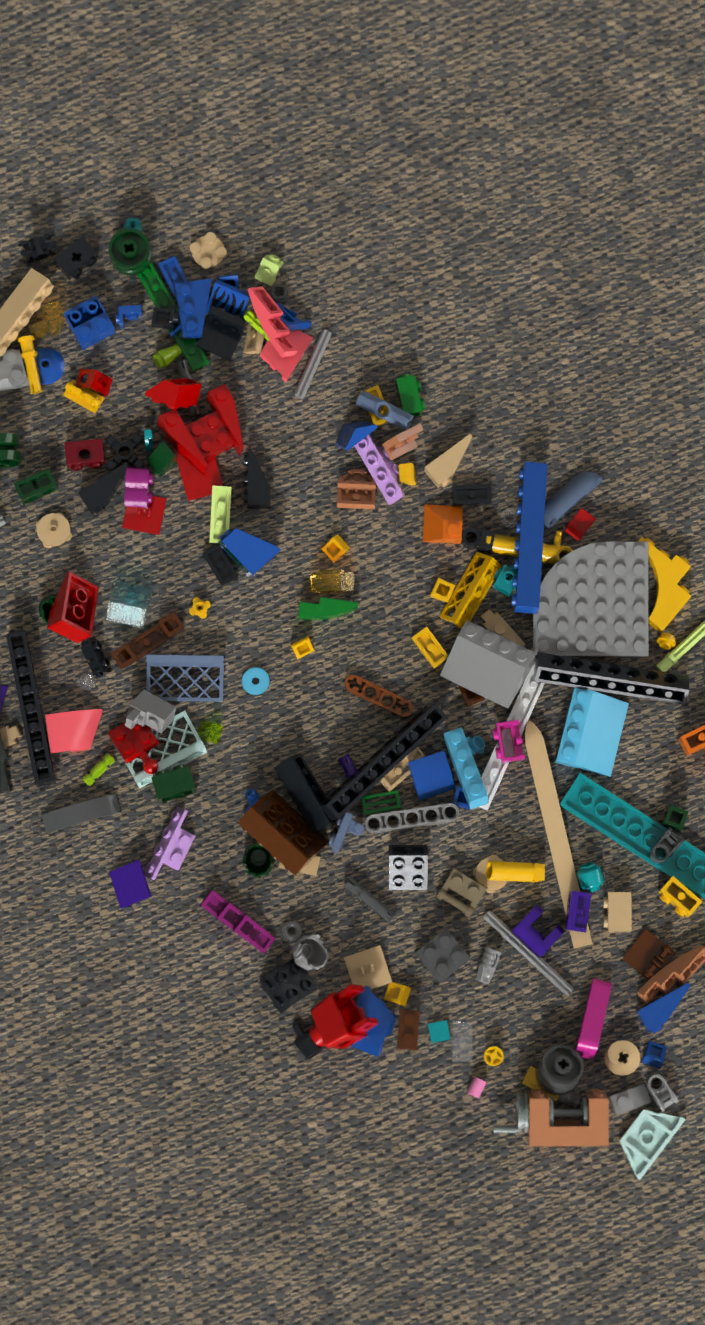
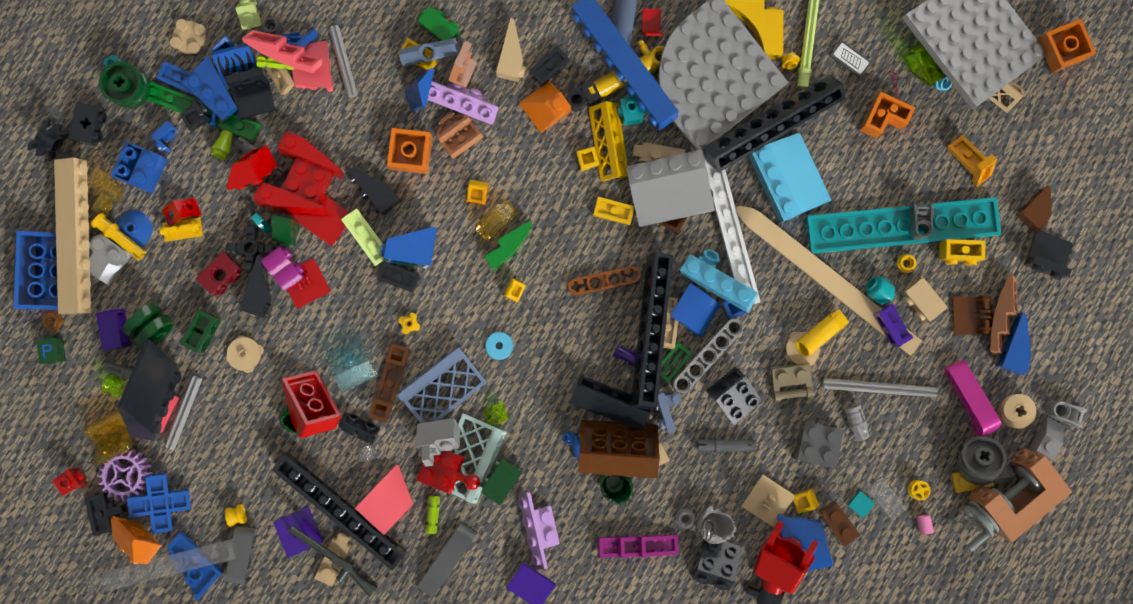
camera: 35 degrees left, 5 degrees up
(308, 474) = (409, 151): none -> orange brick
(407, 473) = (486, 89): yellow slope -> none
(516, 741) = (741, 231): dark pink window -> none
(532, 937) = (874, 373): dark purple connector -> none
(625, 878) = (912, 263): none -> yellow plate
(648, 1138) = (1085, 456): light aqua wing -> none
(654, 1054) = (1037, 387): blue slope -> none
(674, 818) = (908, 193): dark green brick -> none

